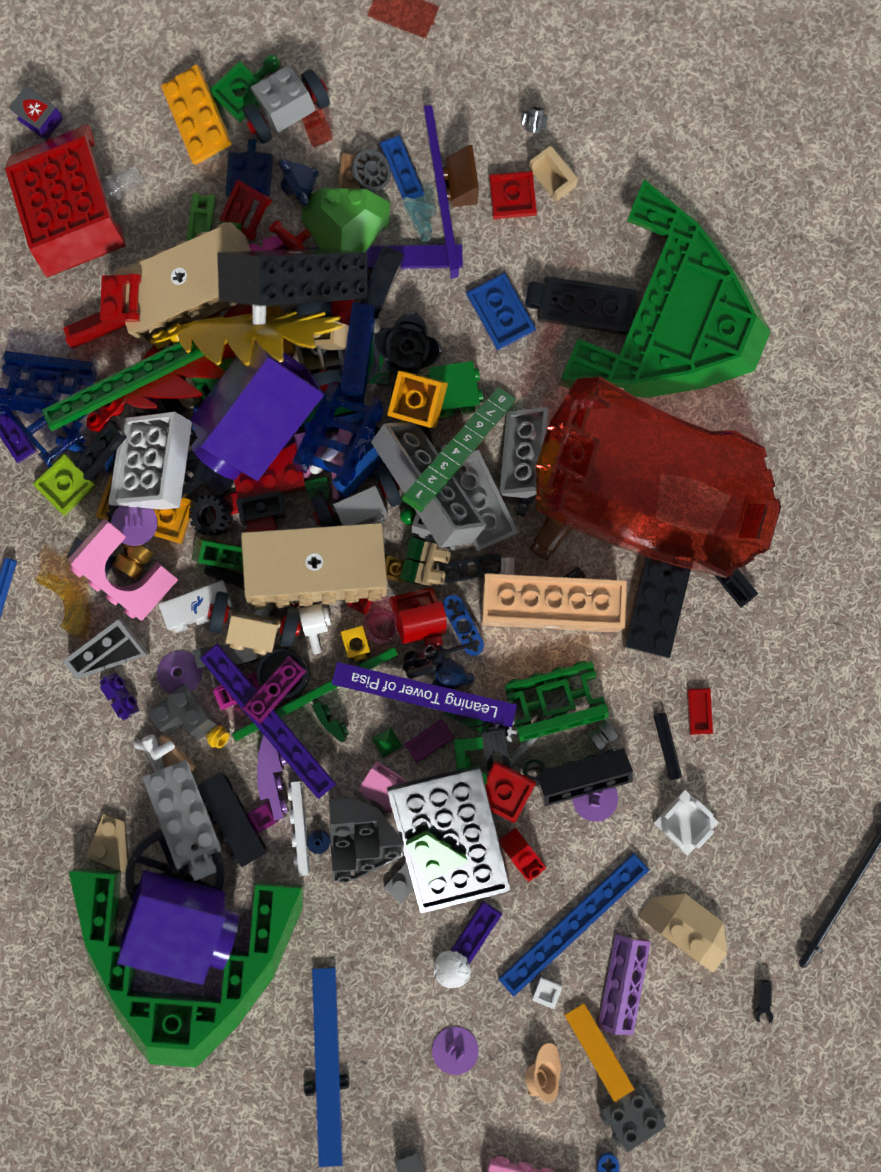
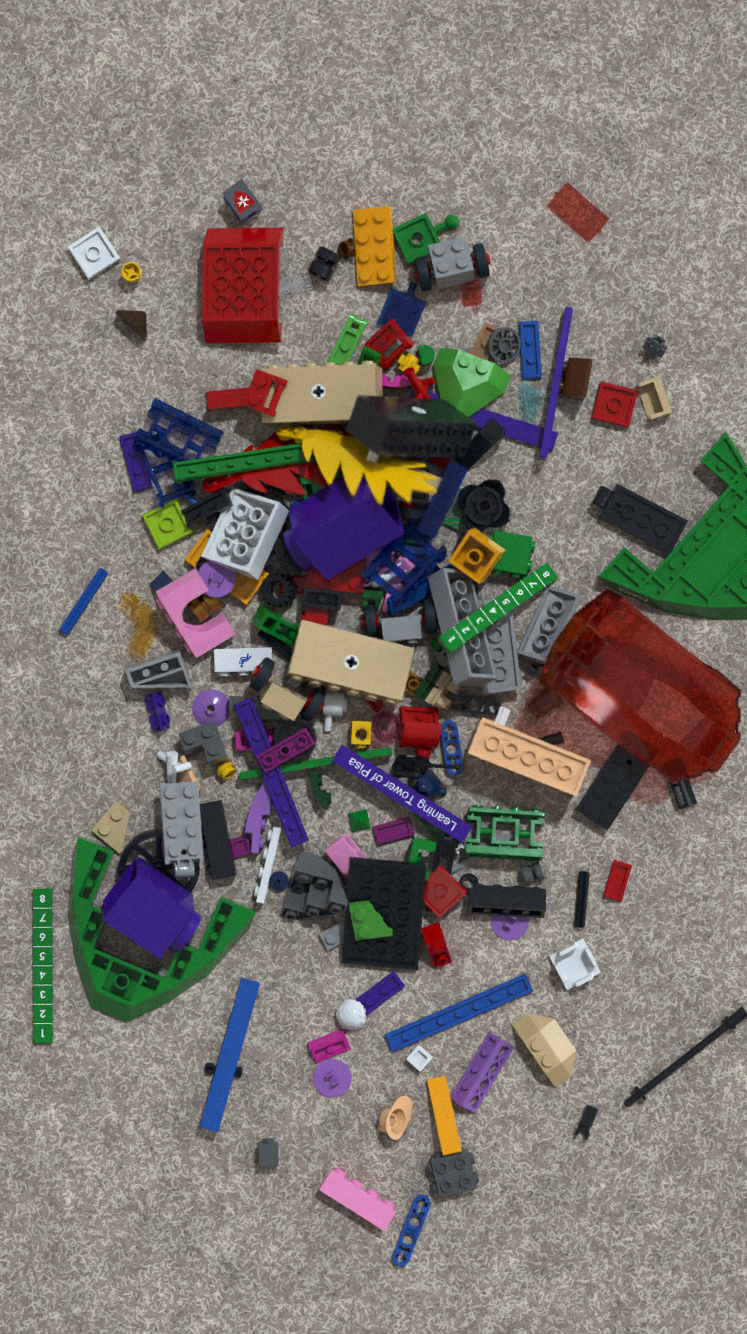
camera: 15 degrees right, 5 degrees up
(79, 1035) = (42, 965): none -> green tile
(147, 145) = (324, 263): none -> black wheel
(167, 127) = (347, 248): none -> reddish brown plate
(268, 220) = (408, 361): none -> yellow gear
(290, 208) = (426, 354): none -> green brick
(298, 180) = (441, 334): dark blue rock -> none
(438, 1014) = (329, 1045): none -> dark pink slope
(500, 311) = (571, 499): blue tile -> none

